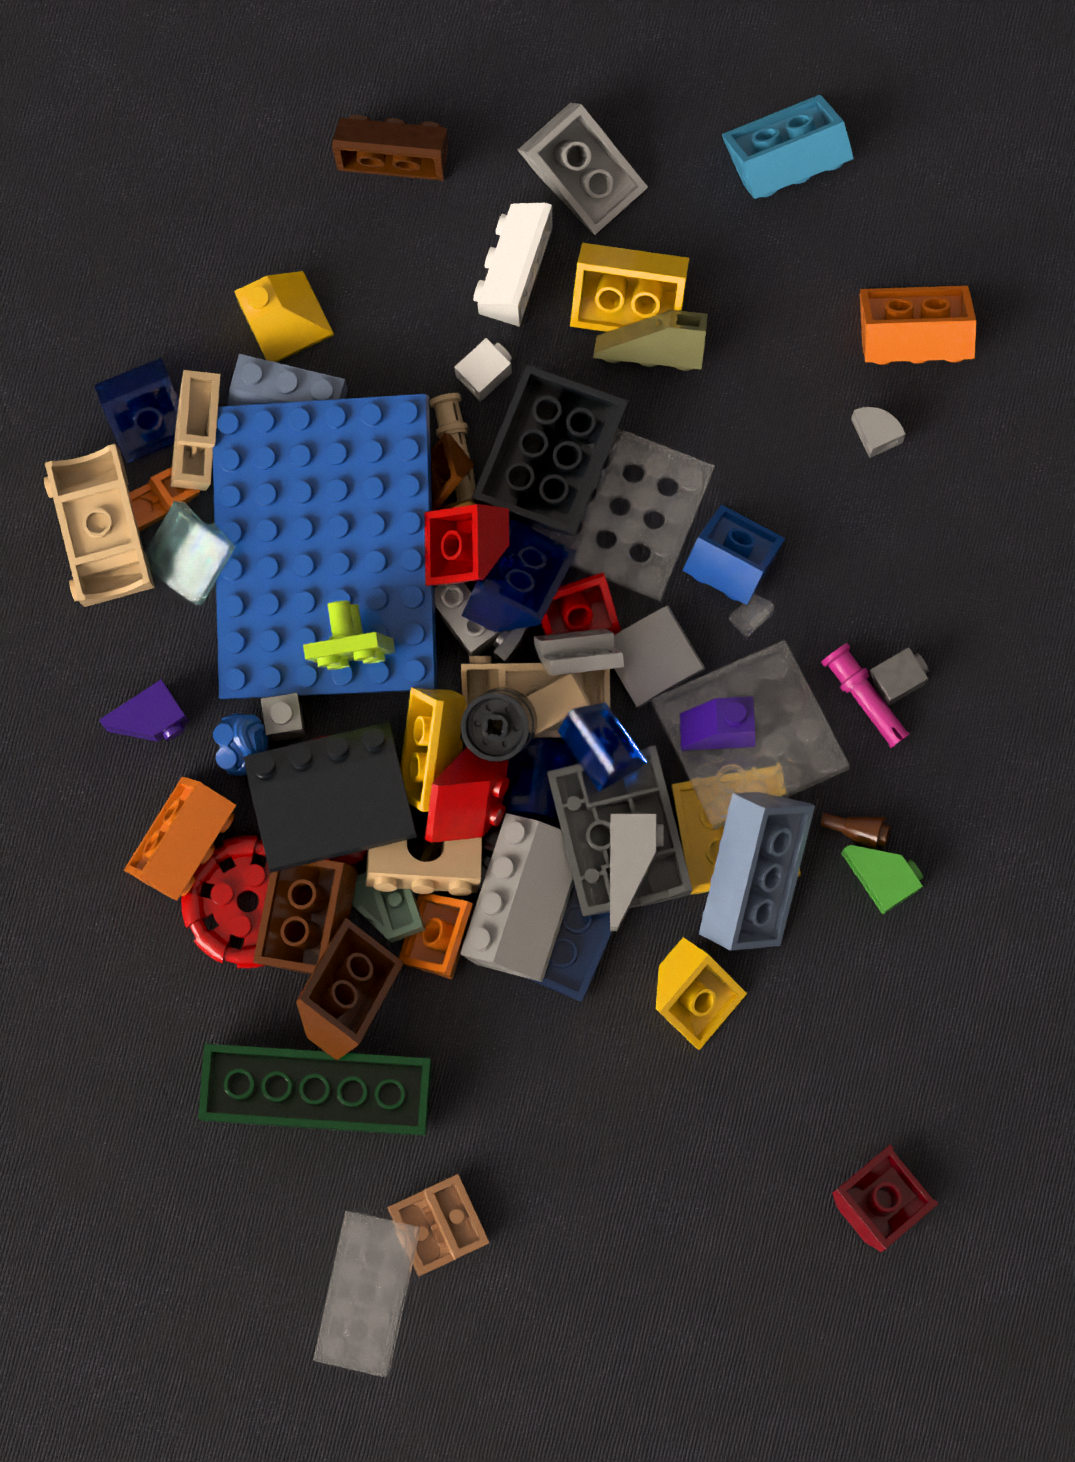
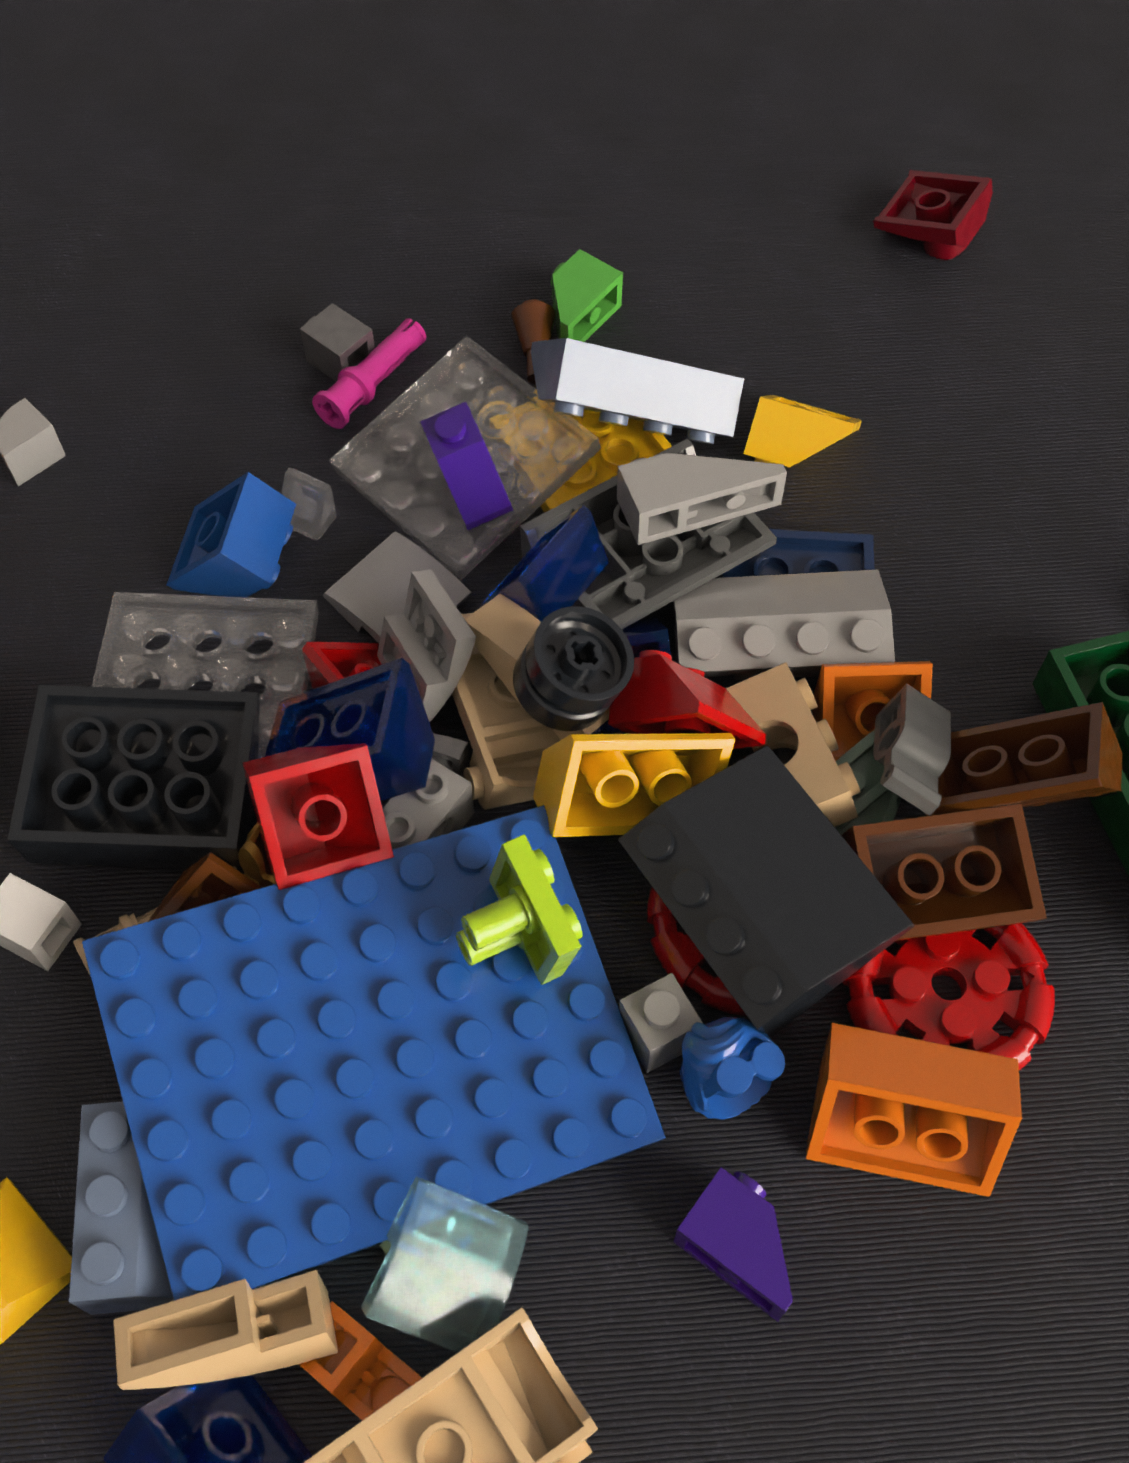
camera: 115 degrees left, 20 degrees down
(387, 929) = (913, 746): none -> dark grey piece

